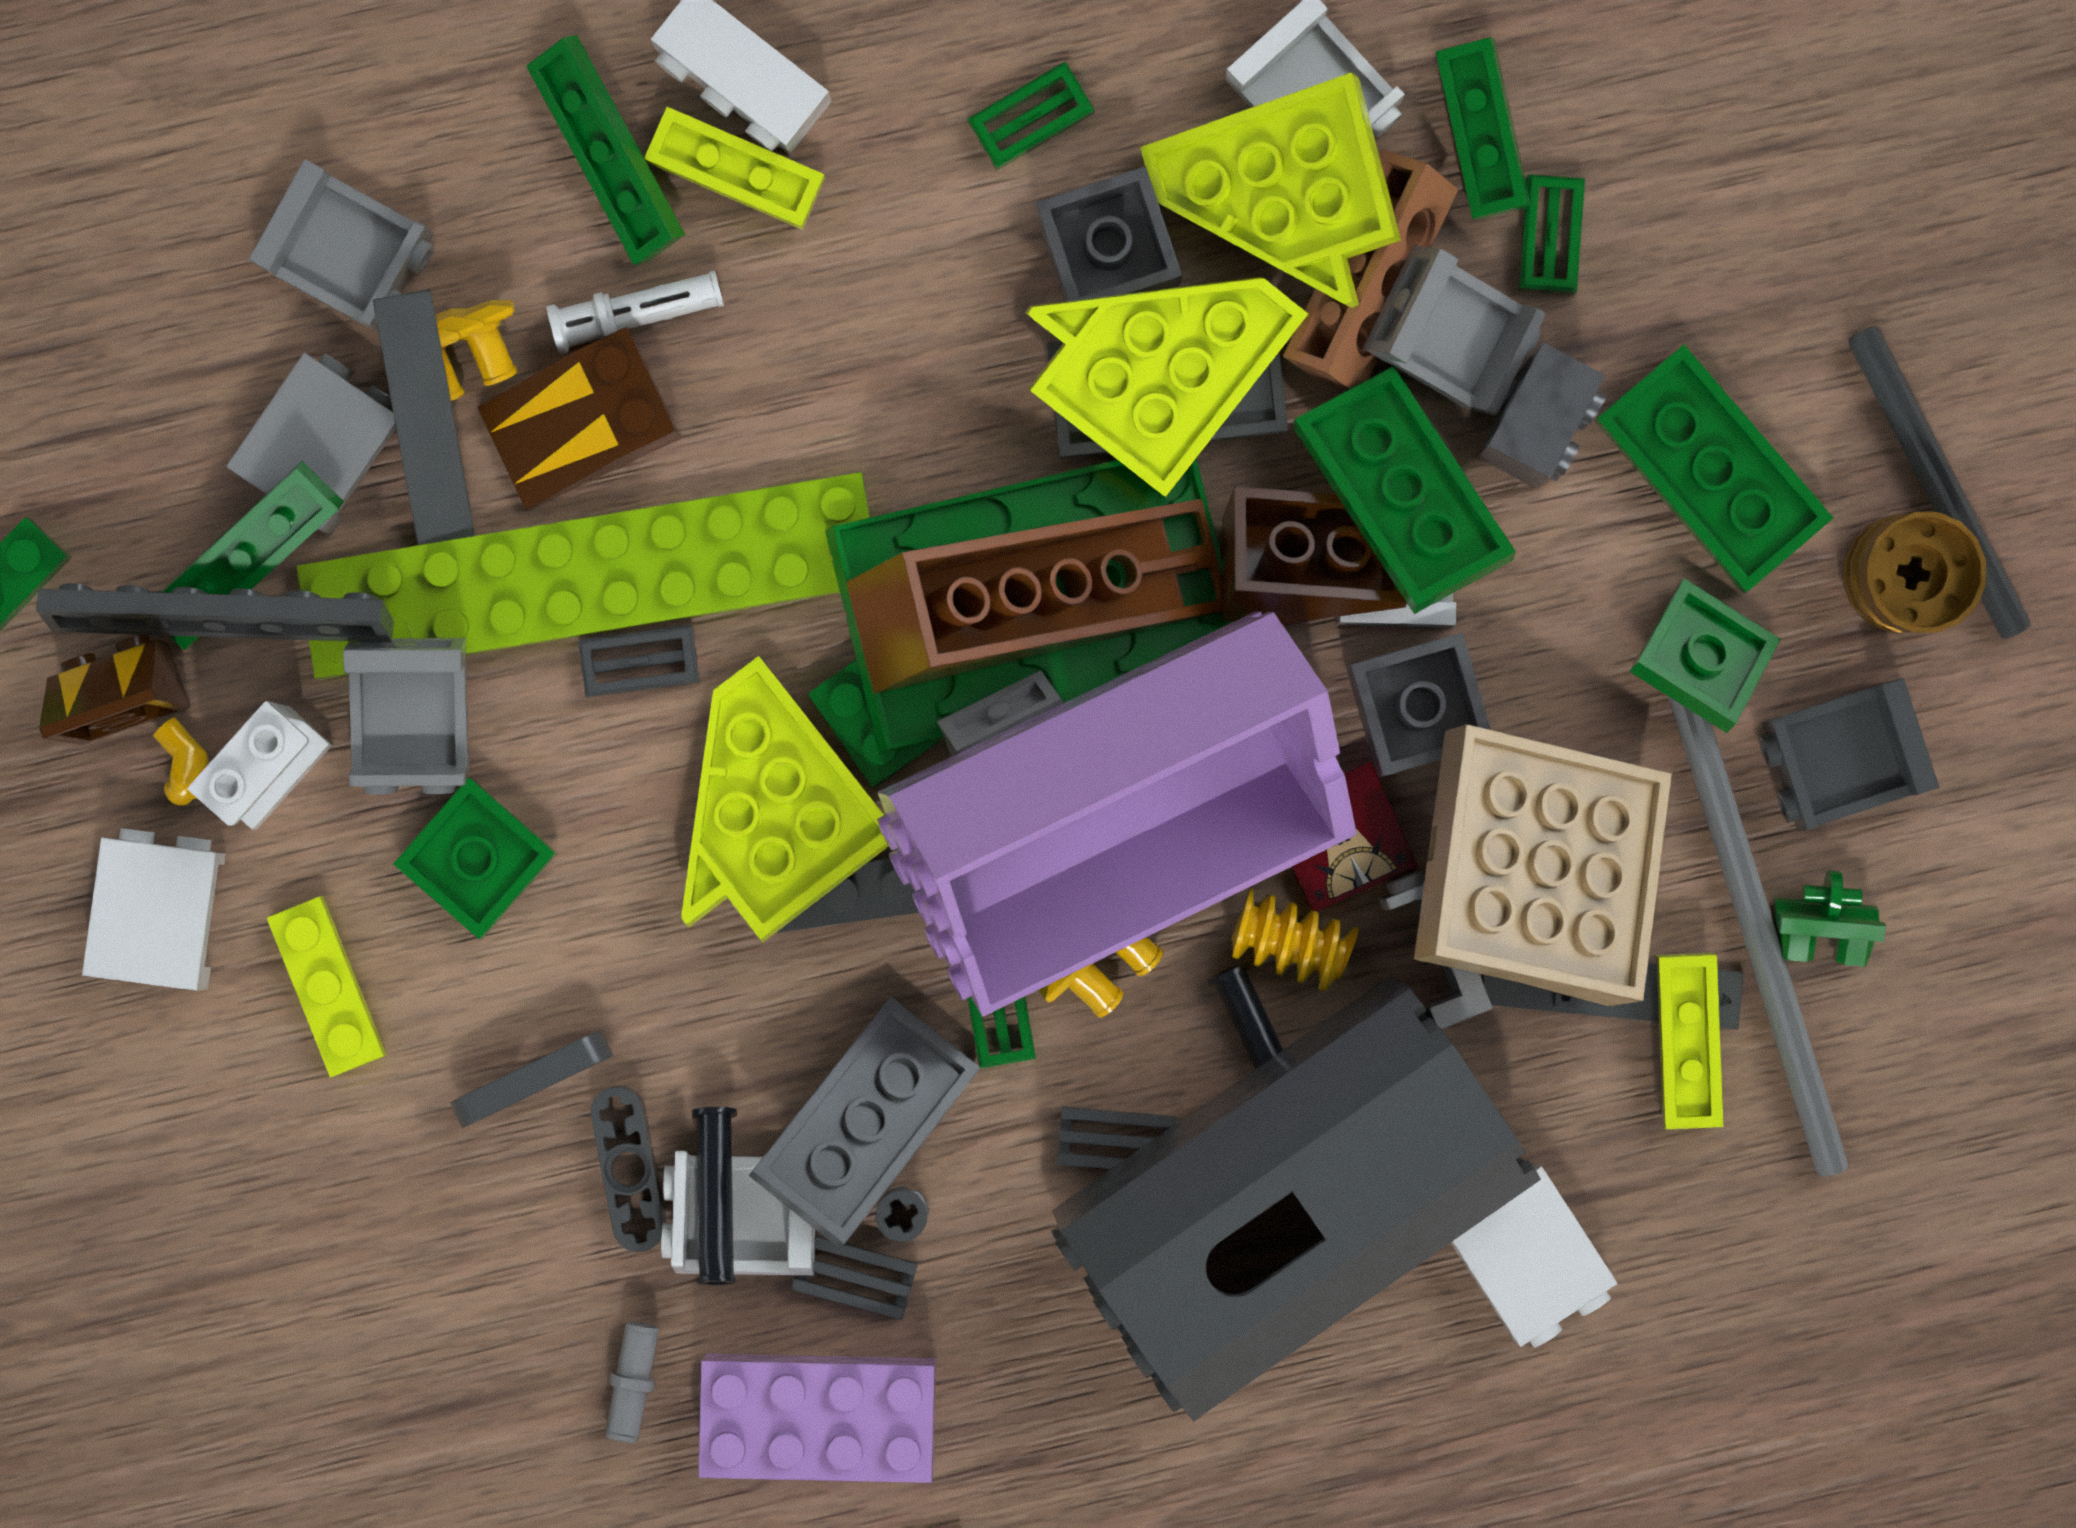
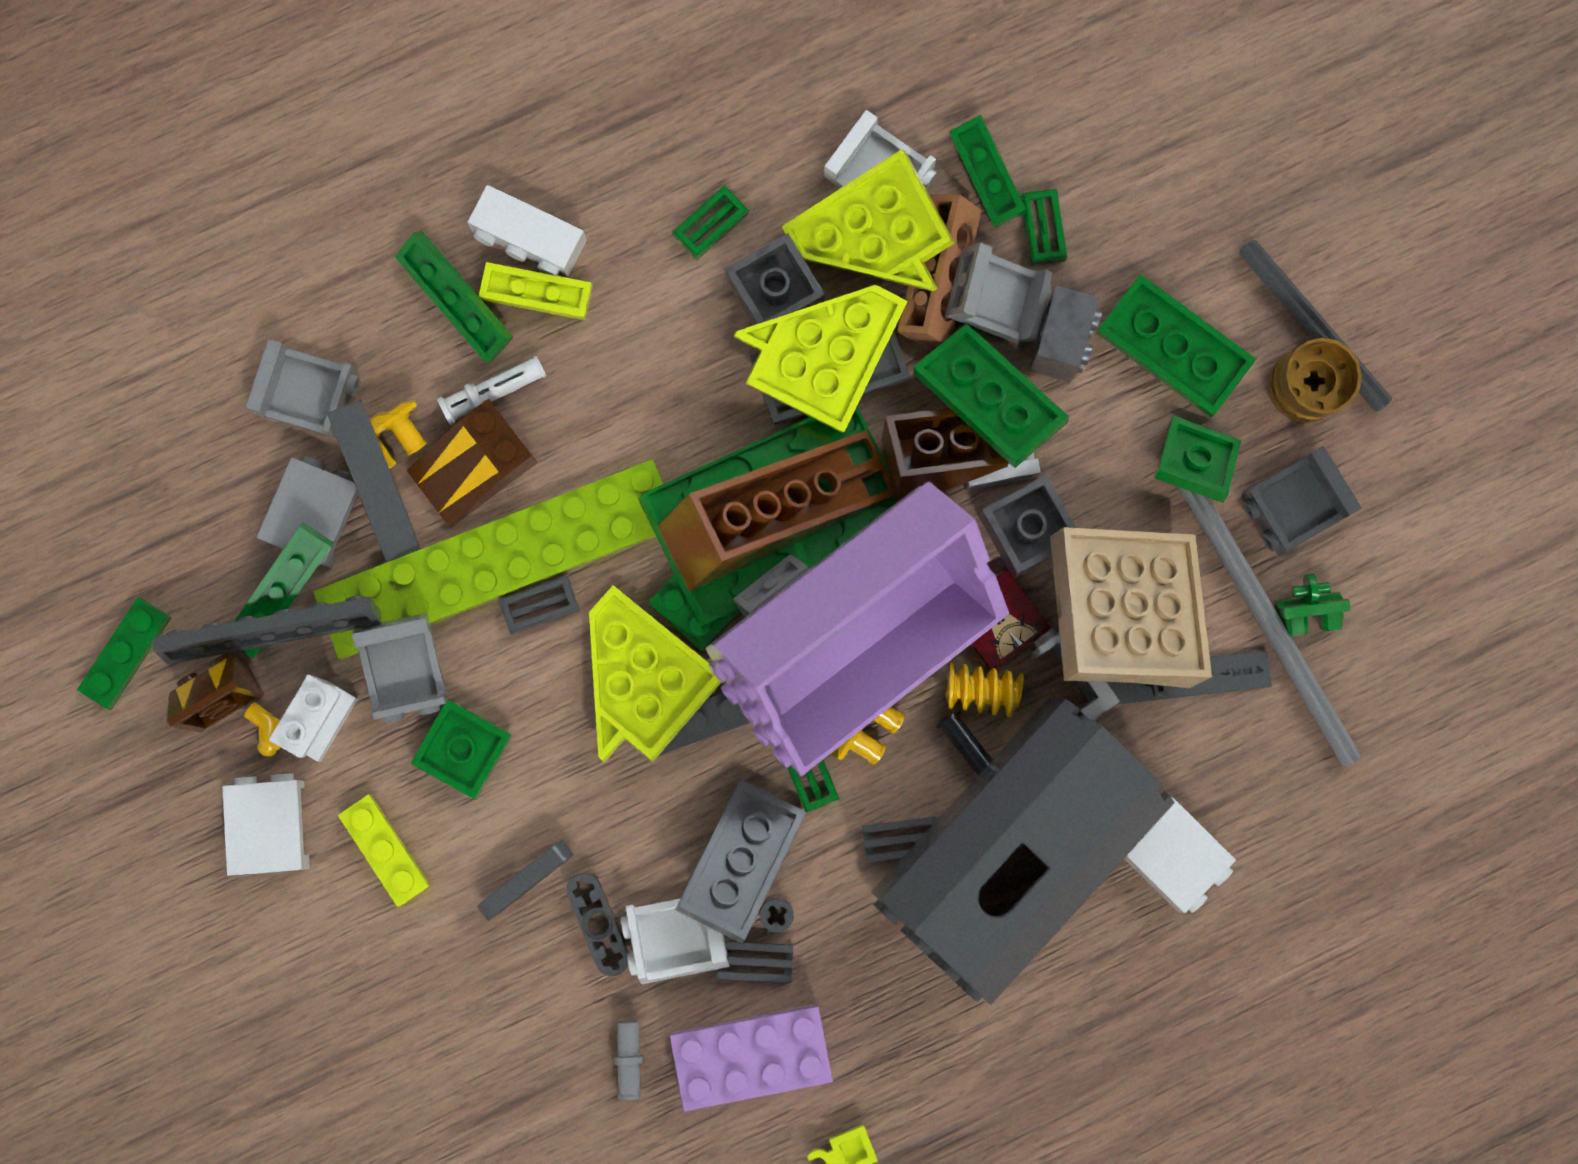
camera: 15 degrees left, 5 degrees down
(715, 1195) = (656, 928): black pin -> none
(1689, 1040) = (1244, 699): neon yellow plate -> none

